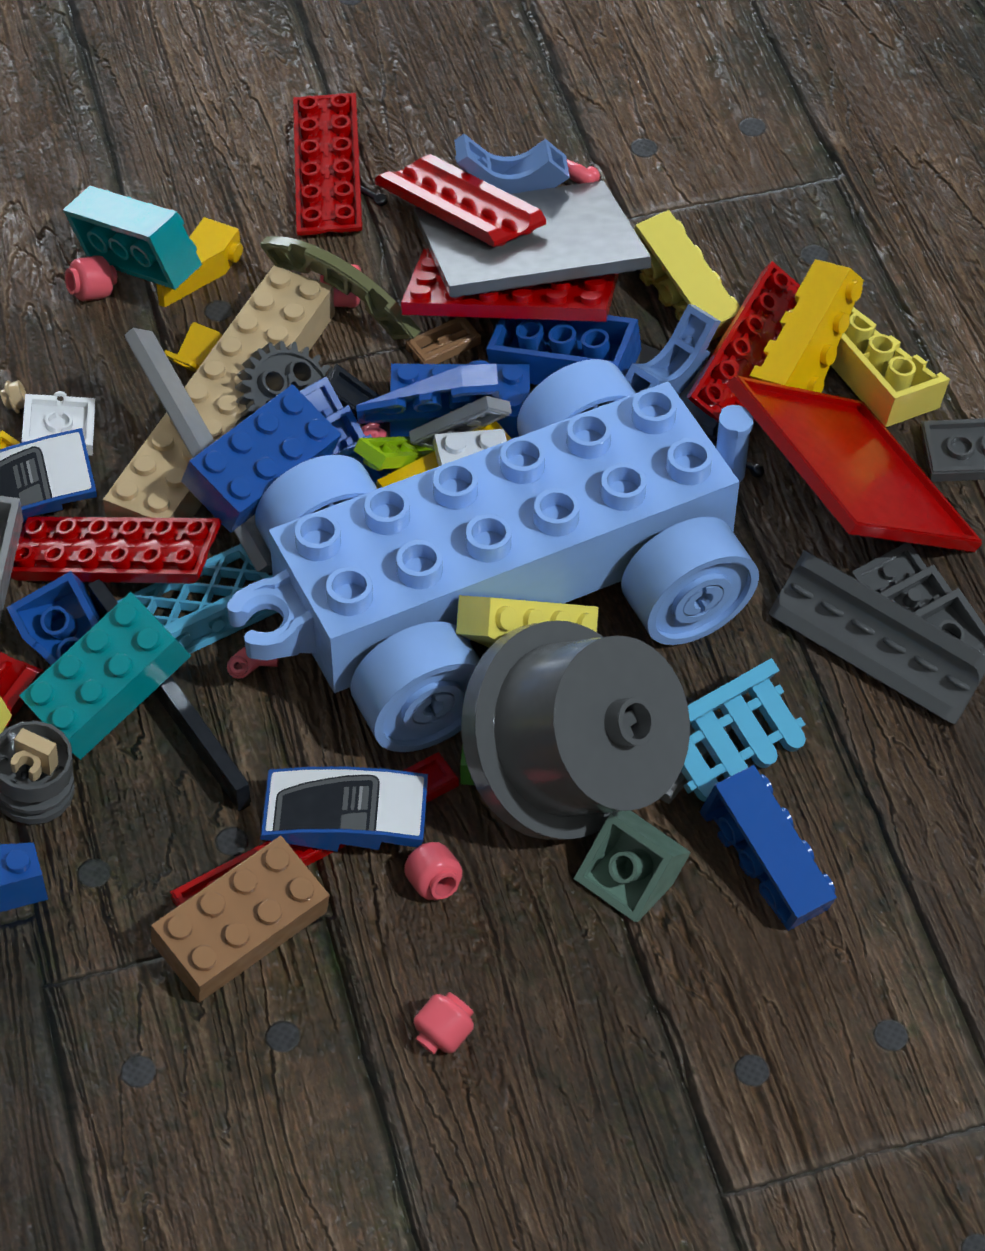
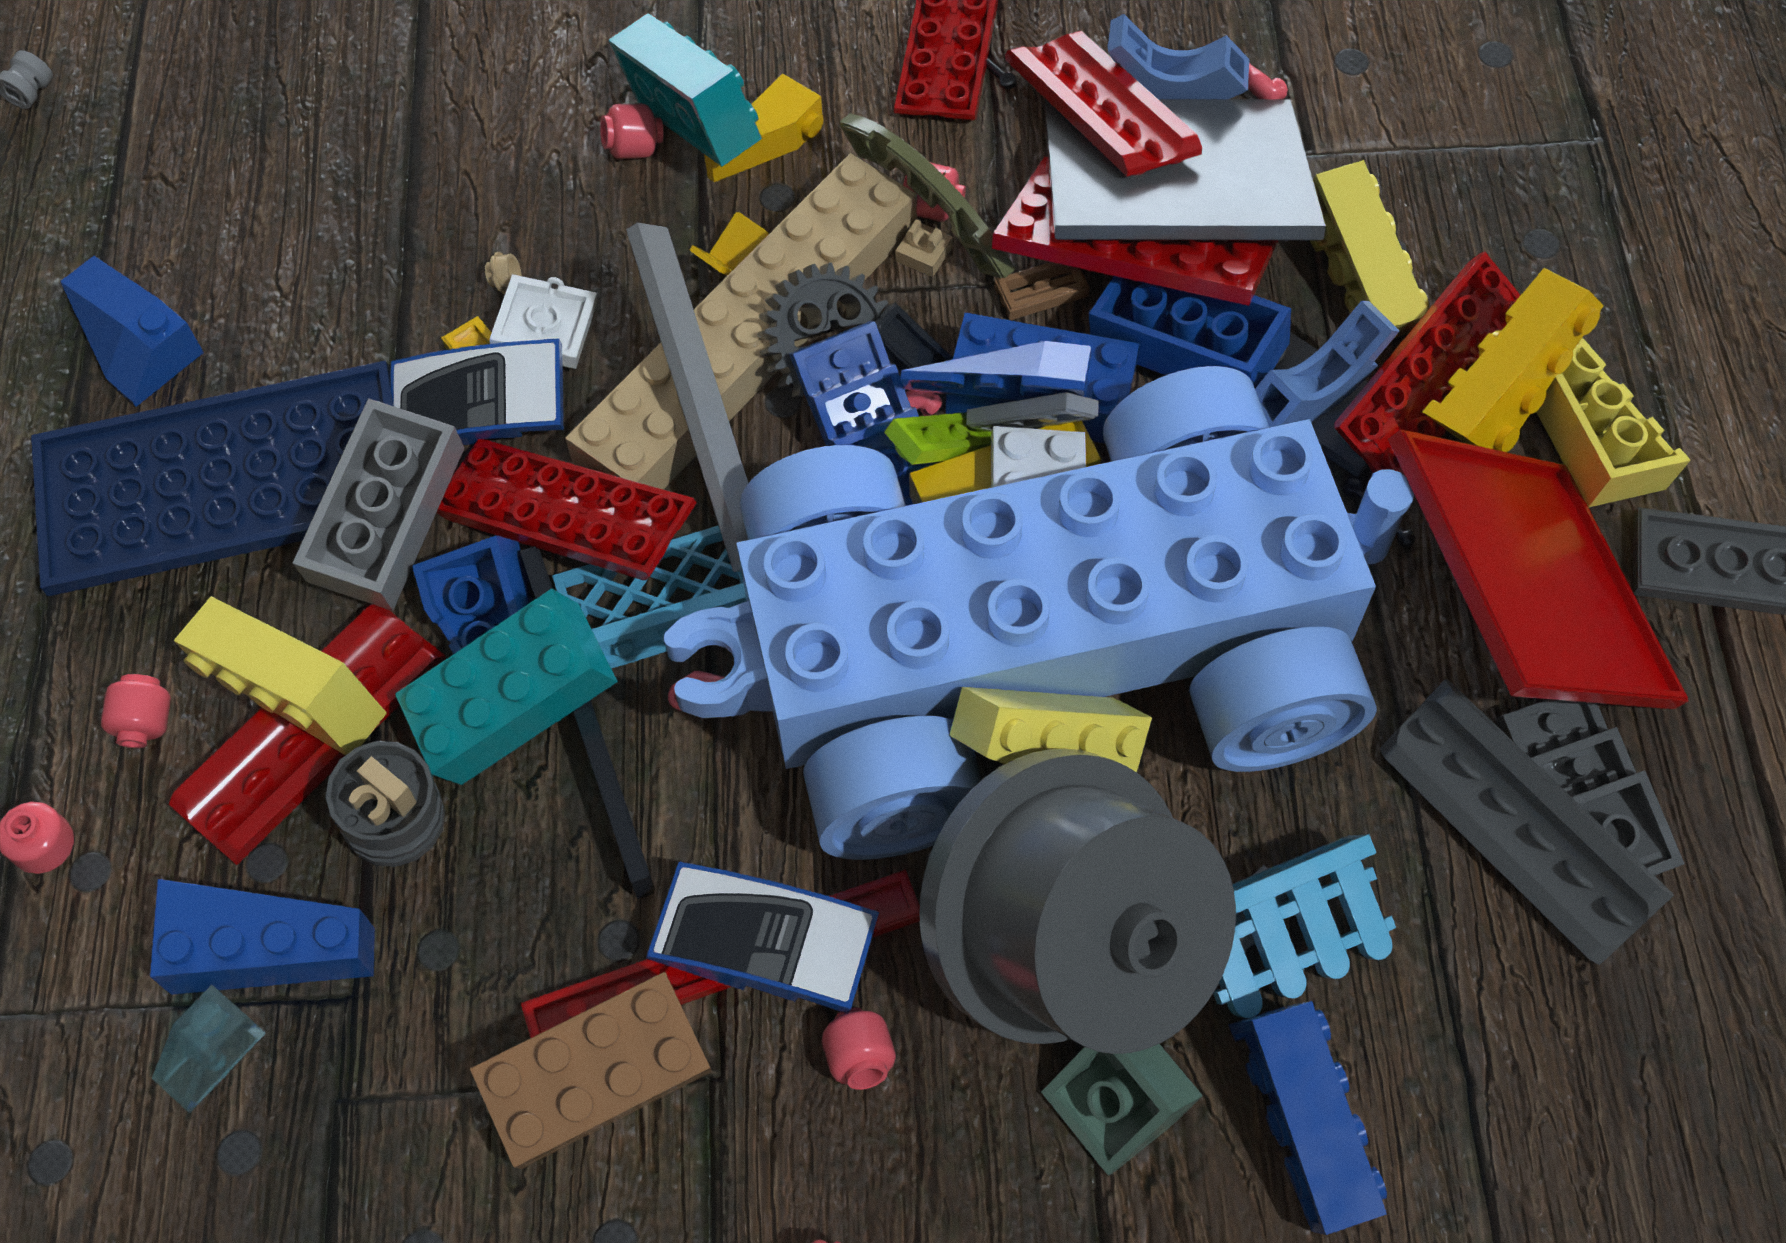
camera: 15 degrees right, 10 degrees up
(247, 459) = (761, 418): blue brick -> none
(345, 328) = (924, 248): none -> tan tile

